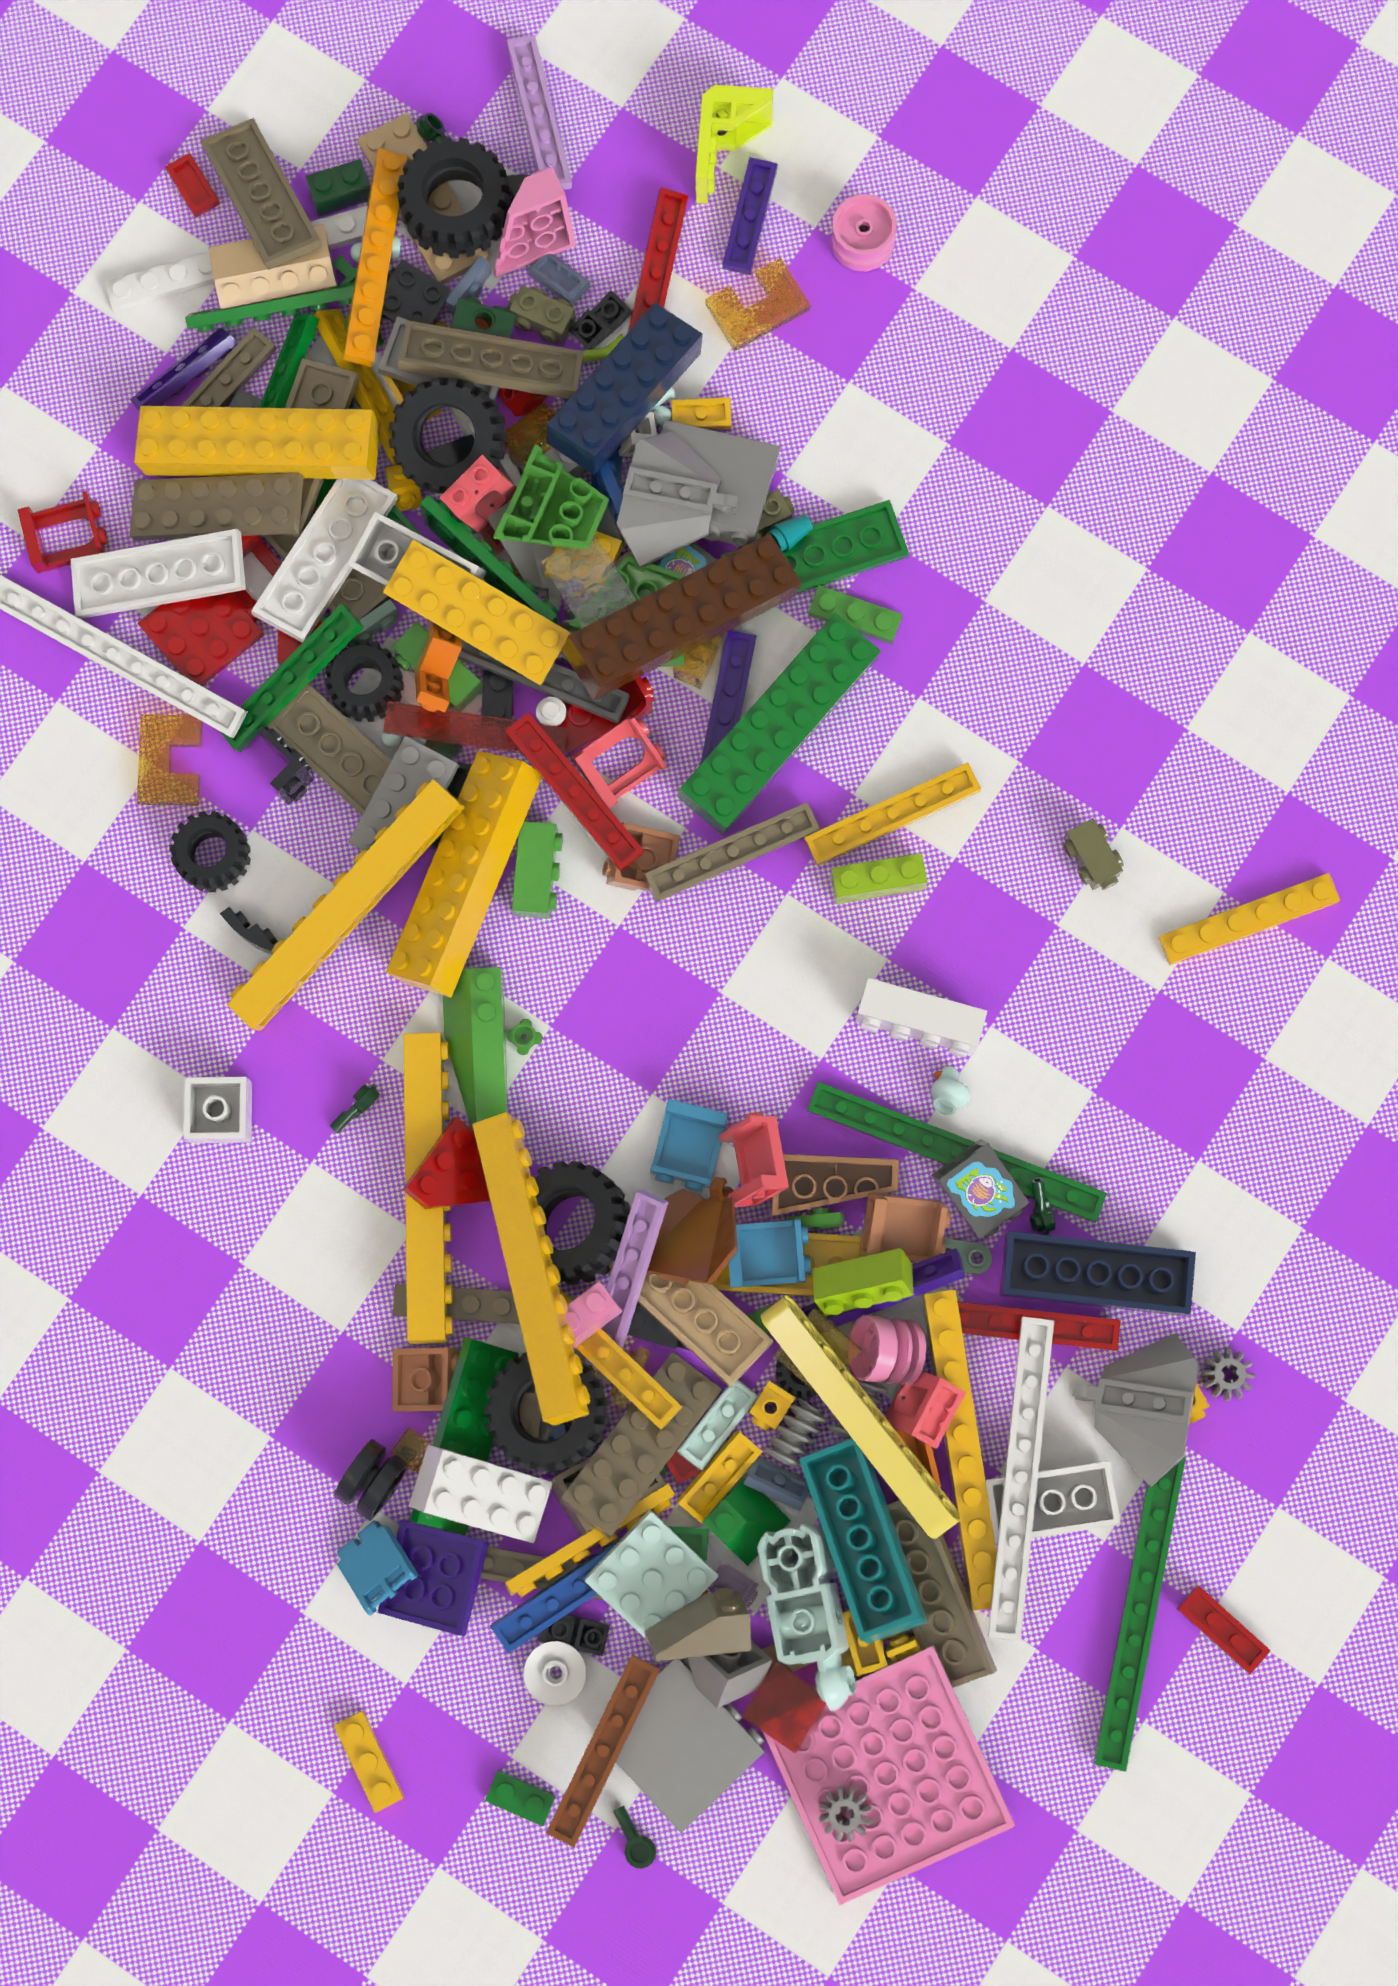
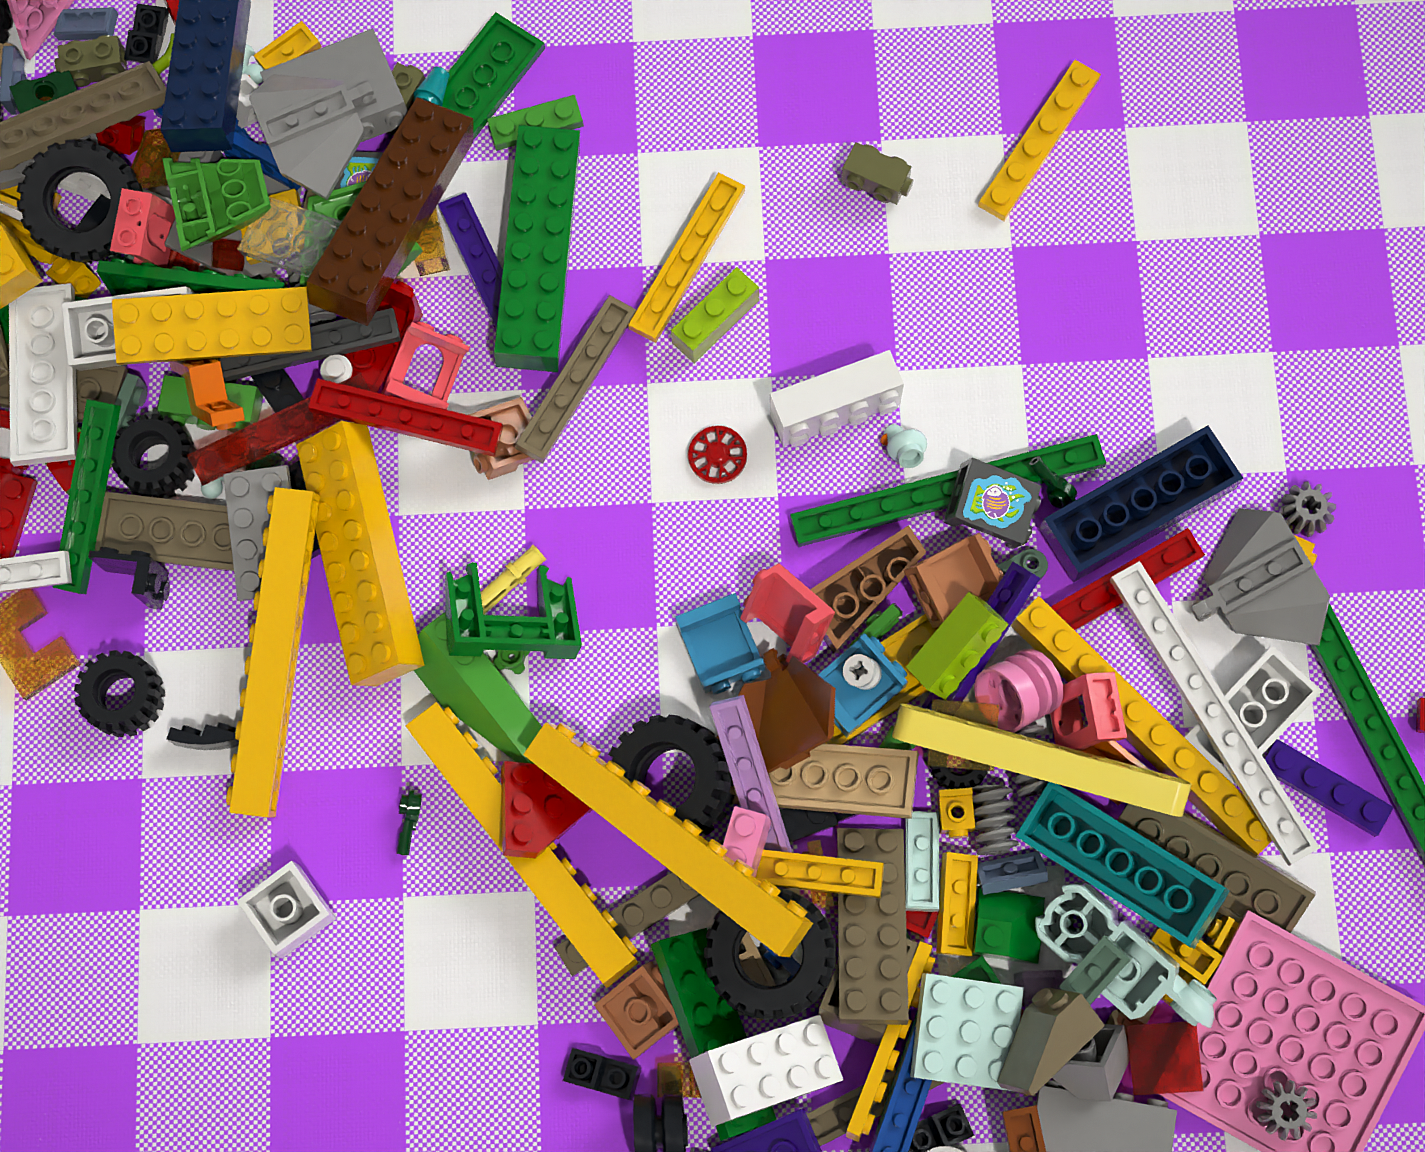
camera: 35 degrees left, 5 degrees down
(362, 1404) = (602, 1074): none -> black slope
(530, 558) = (226, 256): none -> clear red tile
(536, 870) = (420, 510): bright green brick -> none
(559, 975) = (511, 577): none -> light yellow pin
(566, 1043) = (472, 632): none -> green wedge
(777, 1605) = (1097, 970): none -> sand green plate
(782, 1252) = (868, 675): none -> white wheel
(799, 991) = (717, 454): none -> red wheel
(1071, 1598) = (1327, 788): none -> dark purple plate

